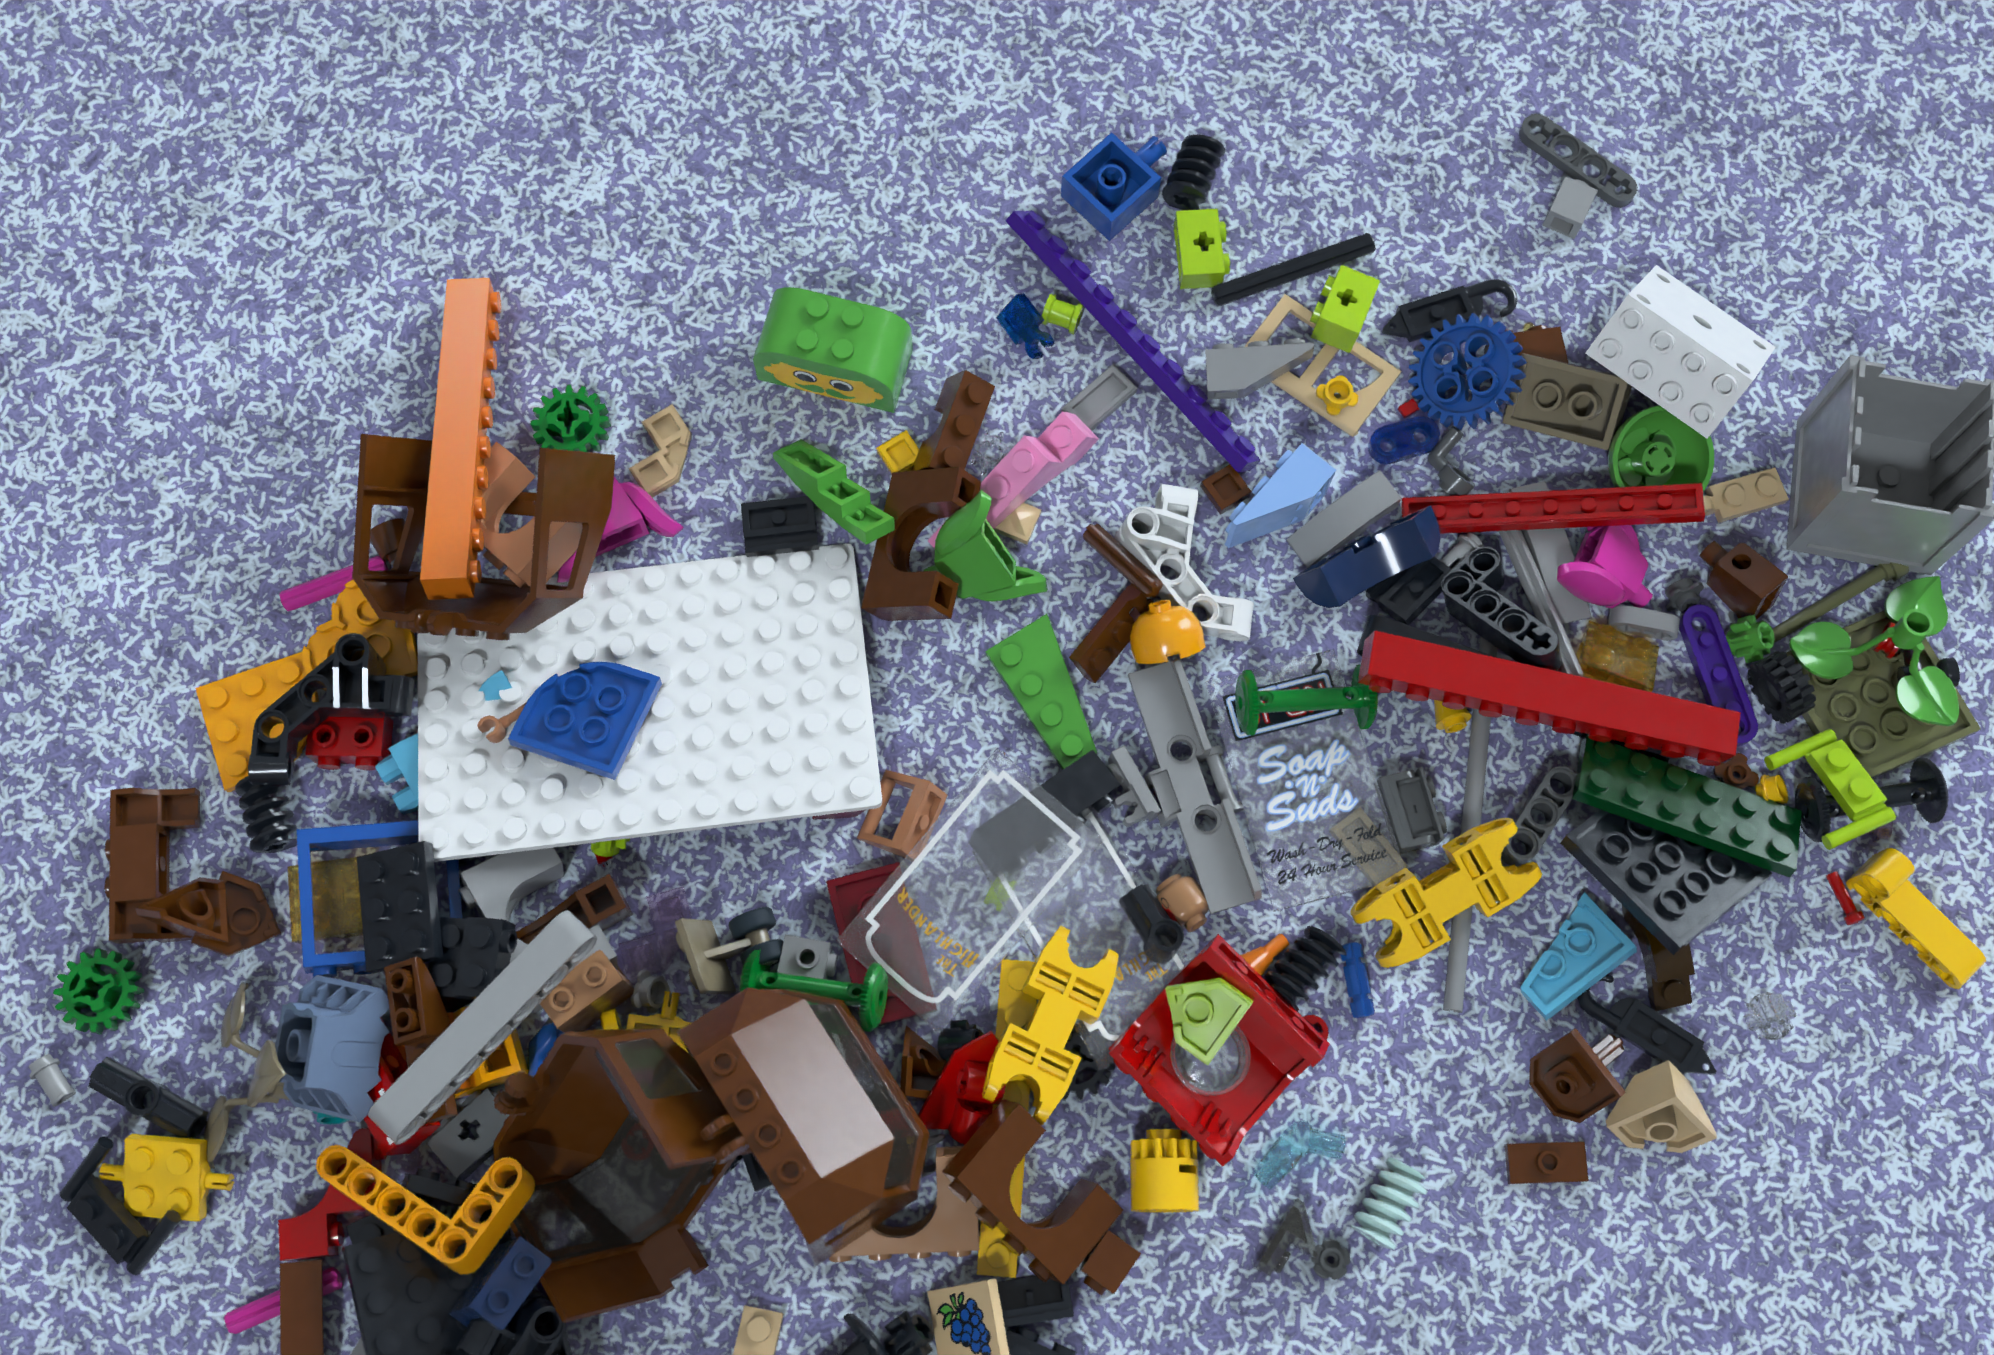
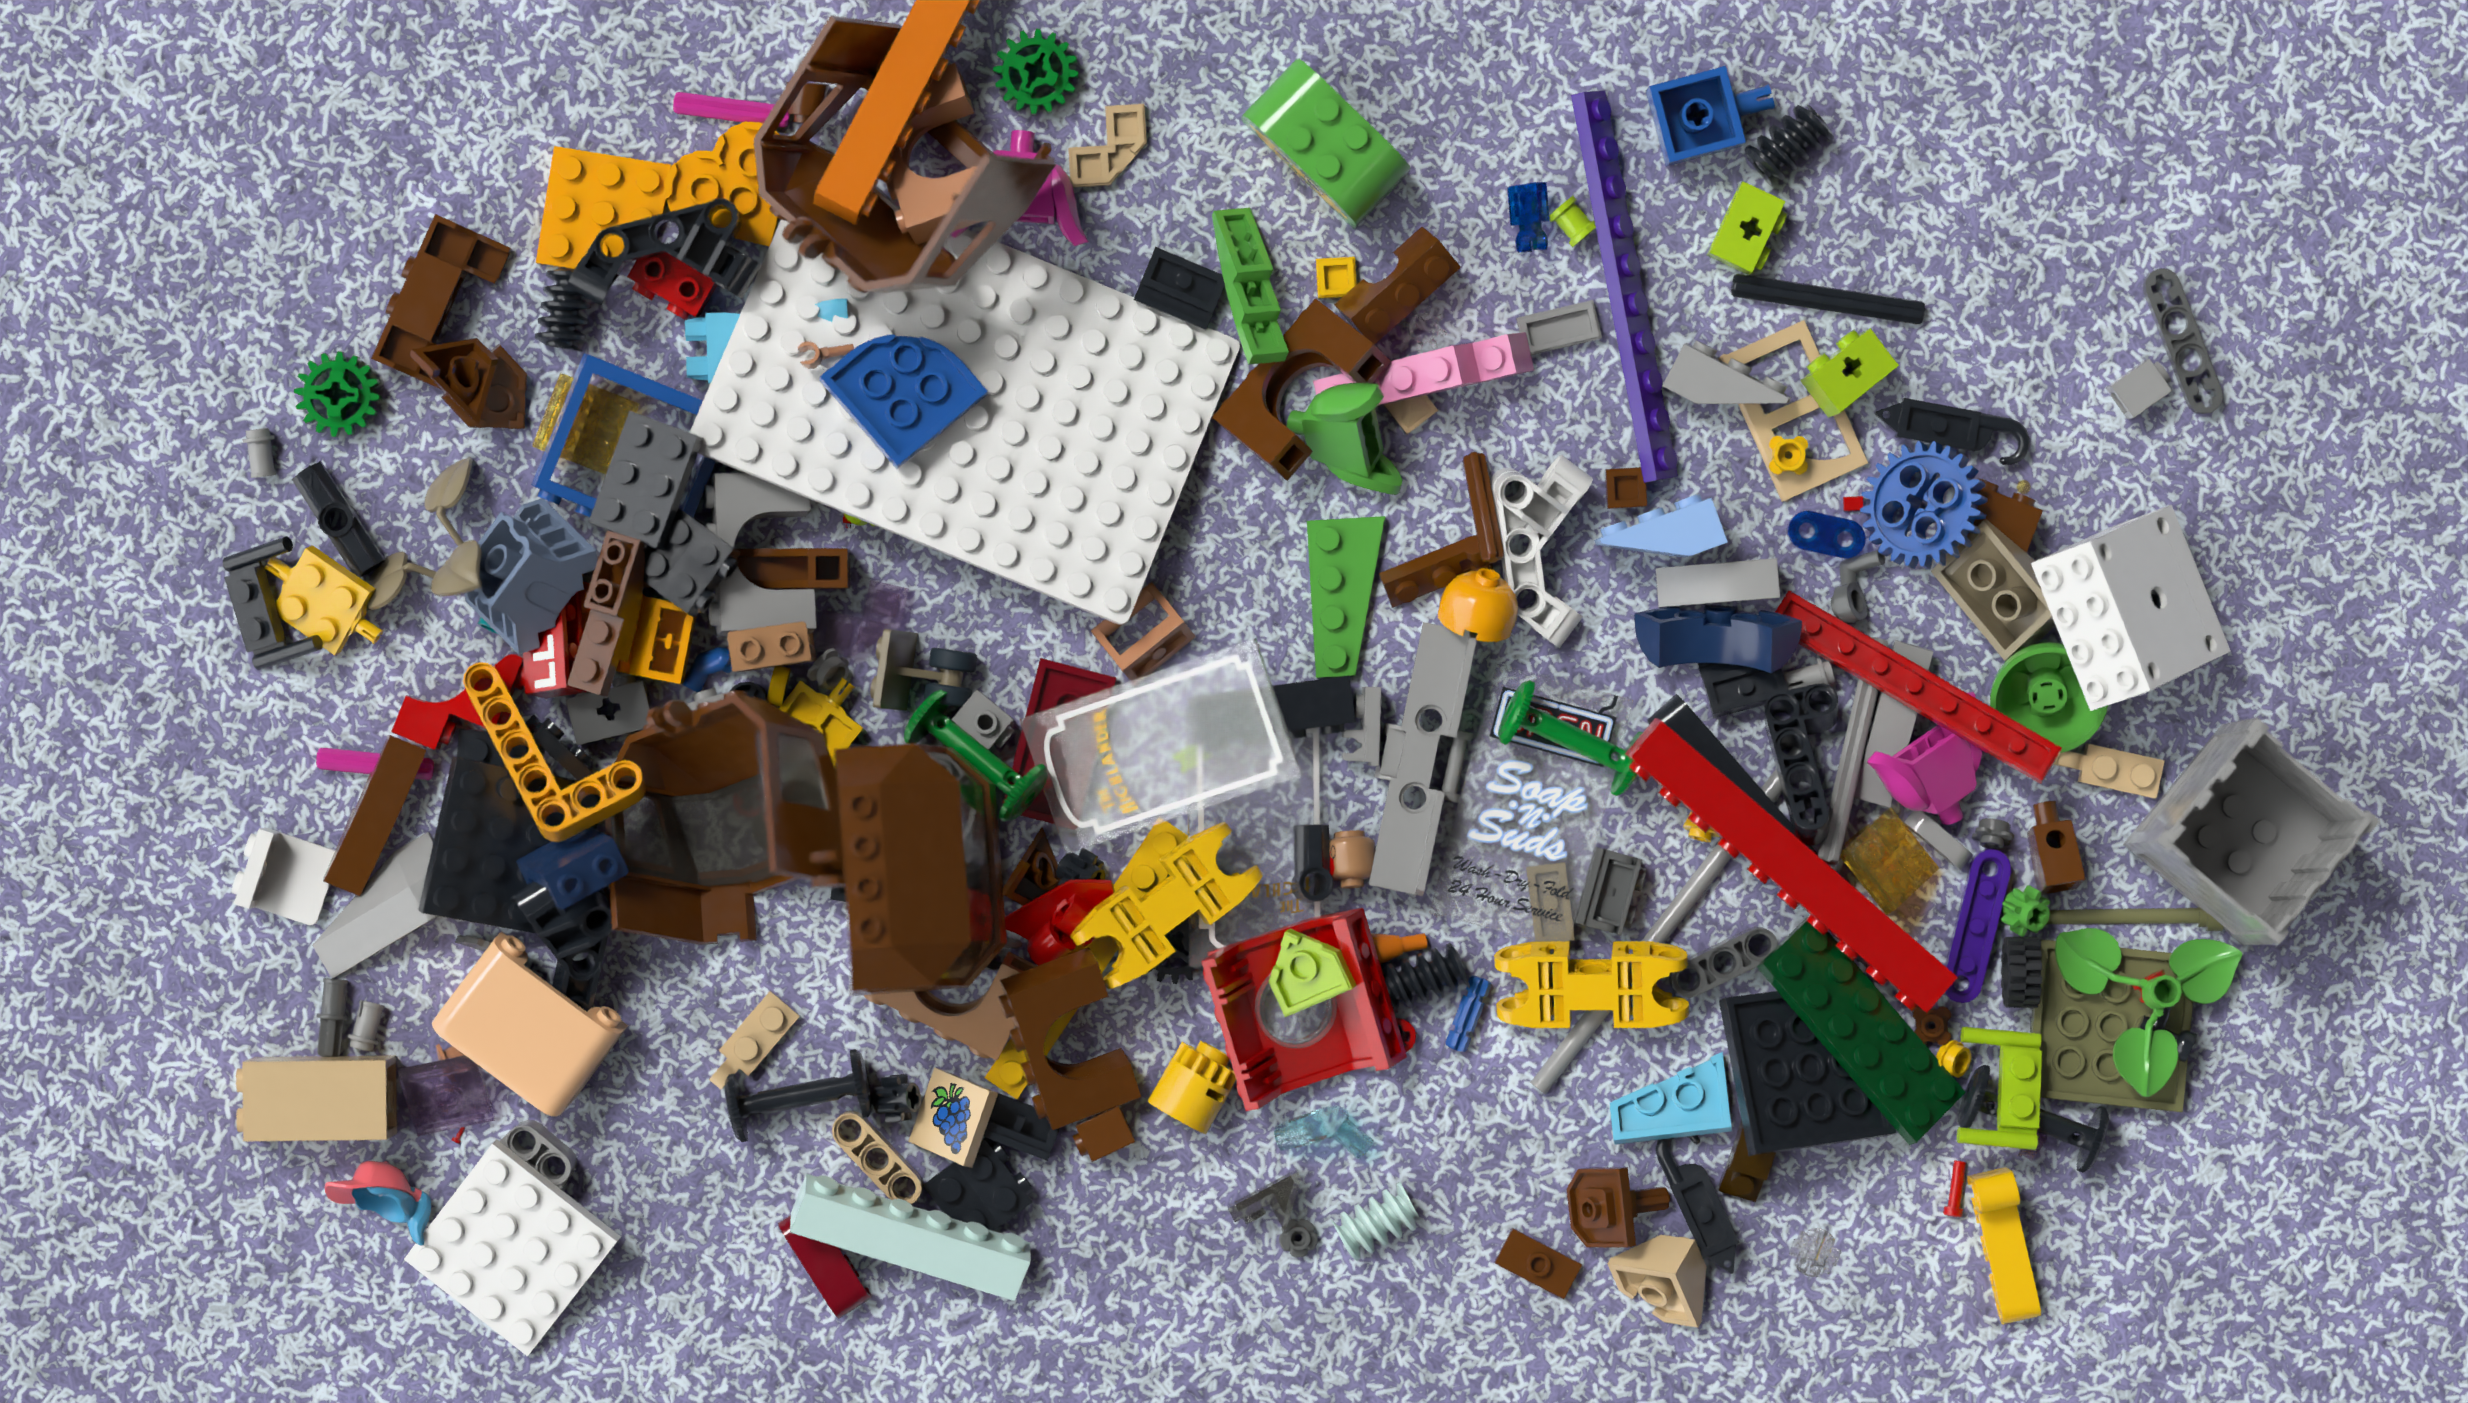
camera: 30 degrees right, 15 degrees up
(482, 1027) = (670, 638): light grey beam -> none

